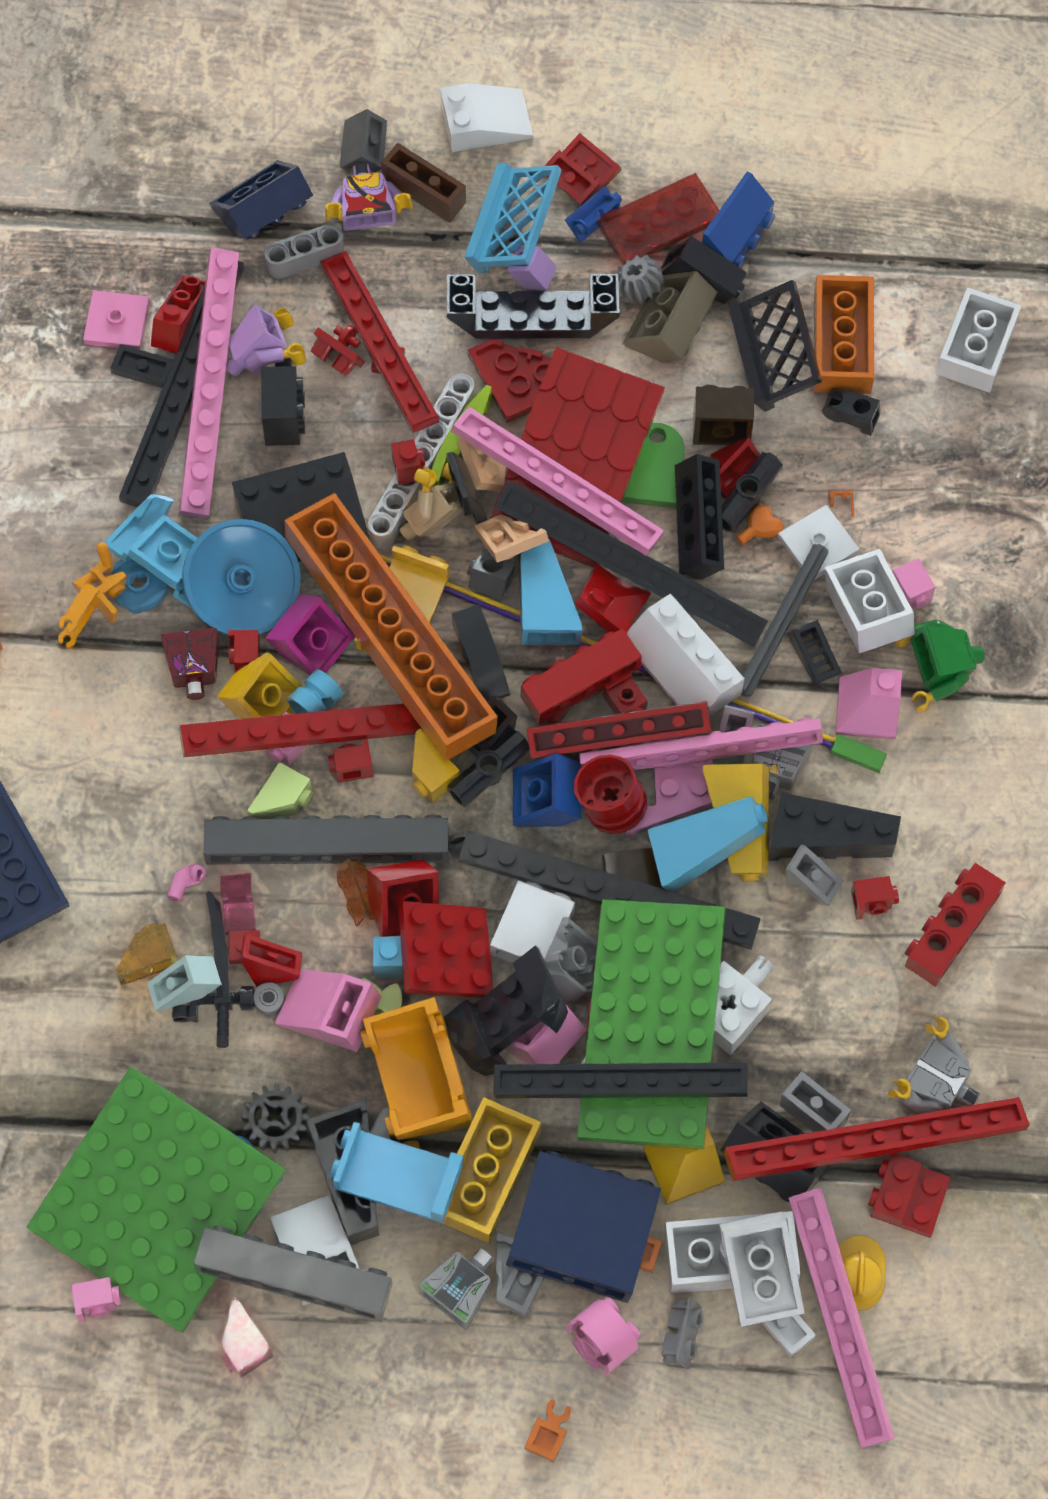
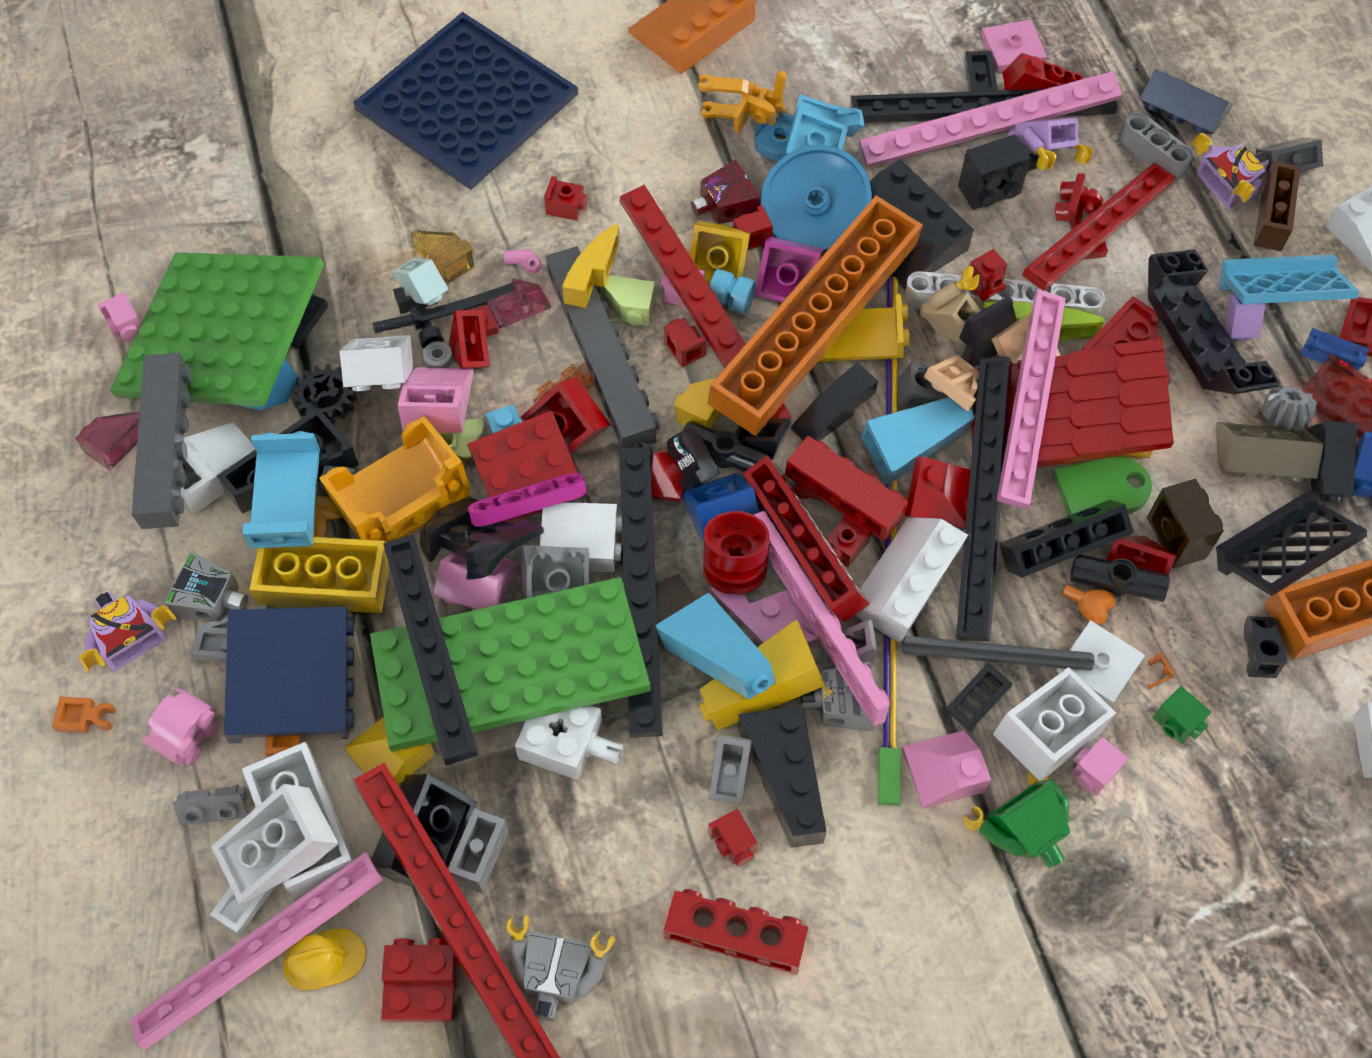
camera: 70 degrees right, 5 degrees down
(128, 824) = (564, 199): none -> red brick
(248, 811) = (591, 267): none -> yellow slope
(275, 1047) = (376, 362): none -> white brick
(474, 1371) = (123, 631): none -> torso
(481, 957) = (527, 499): none -> dark pink beam
(493, 823) = (666, 477): none -> red slope
(495, 798) = (691, 458): none -> black leg
(891, 501) = (1182, 716): none -> green brick

